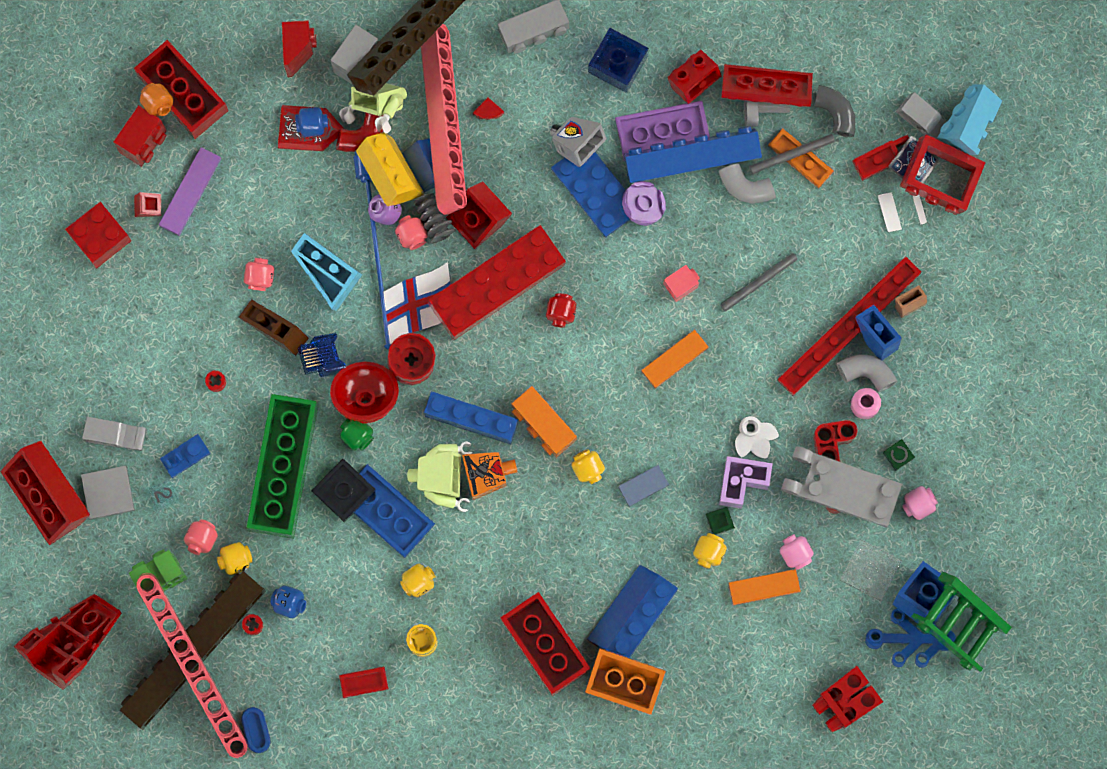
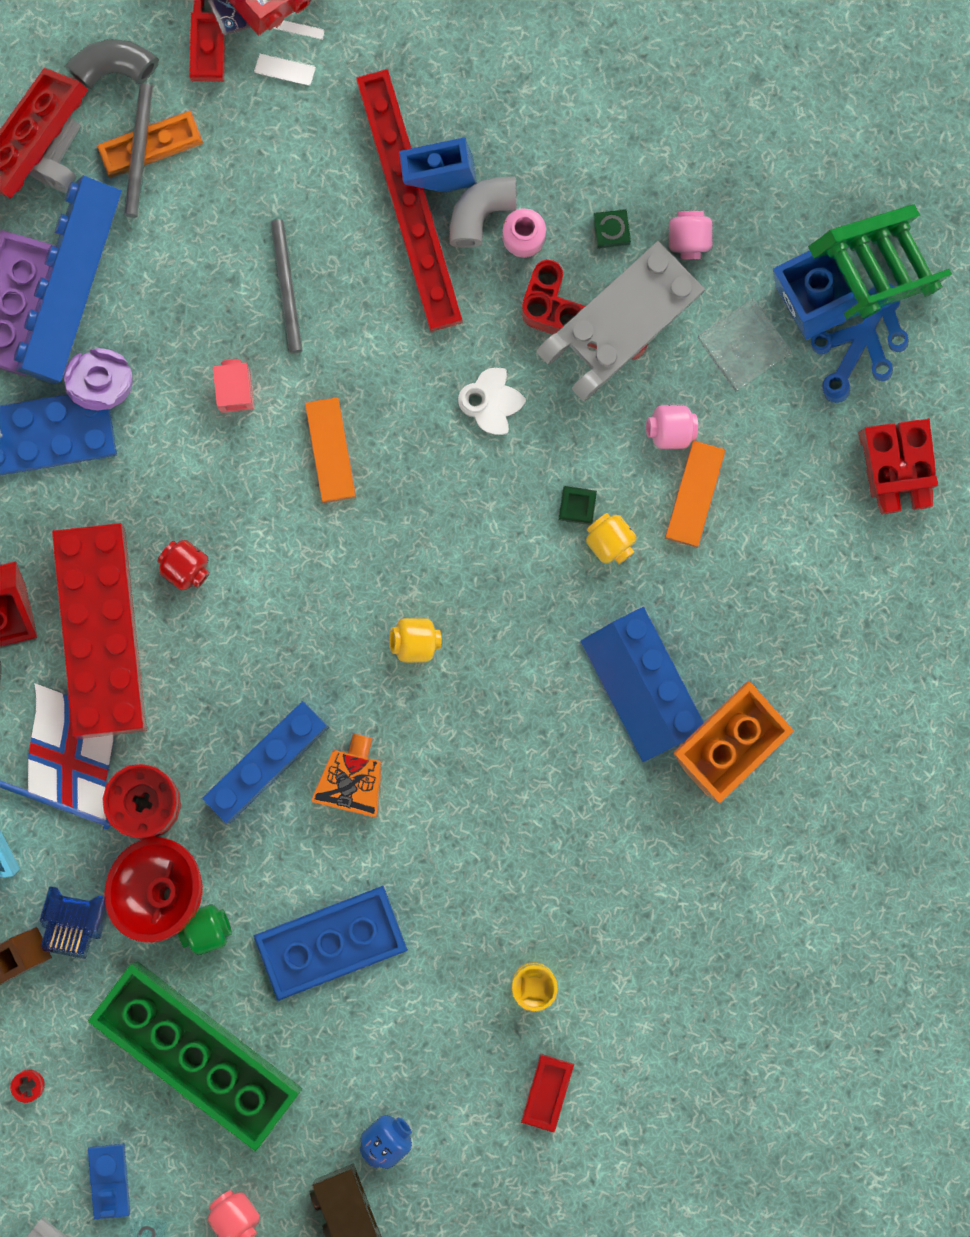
camera: 65 degrees left, 5 degrees up
(234, 558) = (287, 1186): yellow head -> none
(257, 619) = (392, 1217): red bush -> none
(343, 490) = (273, 987): black tile -> none
(417, 580) = (449, 949): yellow head -> none
(440, 475) = (321, 844): yellowish green torso -> none
(543, 422) = (323, 668): orange brick -> none
(545, 644) = (625, 822): red brick -> none
(643, 485) = (478, 580): sand blue tile -> none
(741, 474) = (533, 448): lavender brick -> none
(744, 189) = (152, 237): light grey cylinder -> none
(912, 306) = (413, 87): nougat piece -> none

